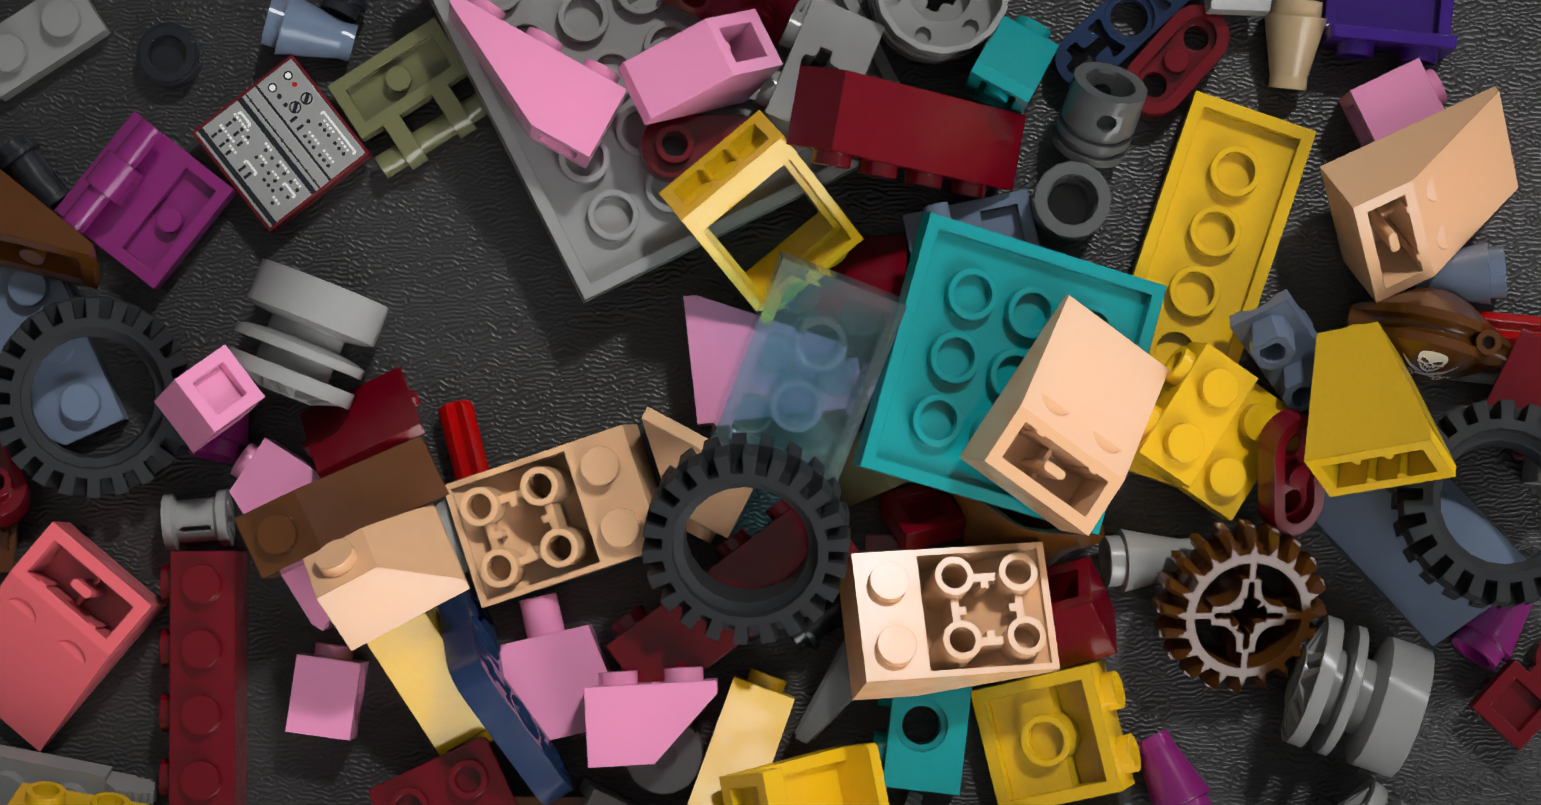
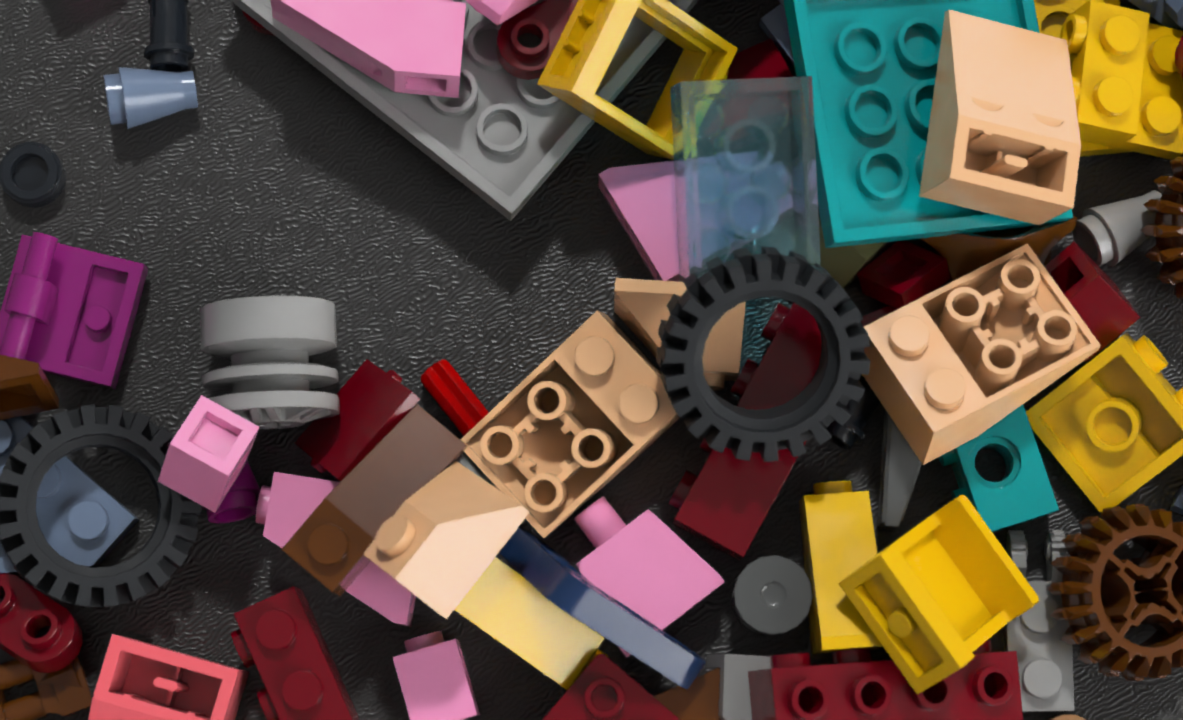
camera: 20 degrees left, 5 degrees down
(197, 520) = (244, 579): light grey bush -> none
(282, 144) = (170, 205): light grey tile -> none
(398, 83) = (253, 102): olive plate -> none
(641, 720) = (741, 567): bright pink slope -> none

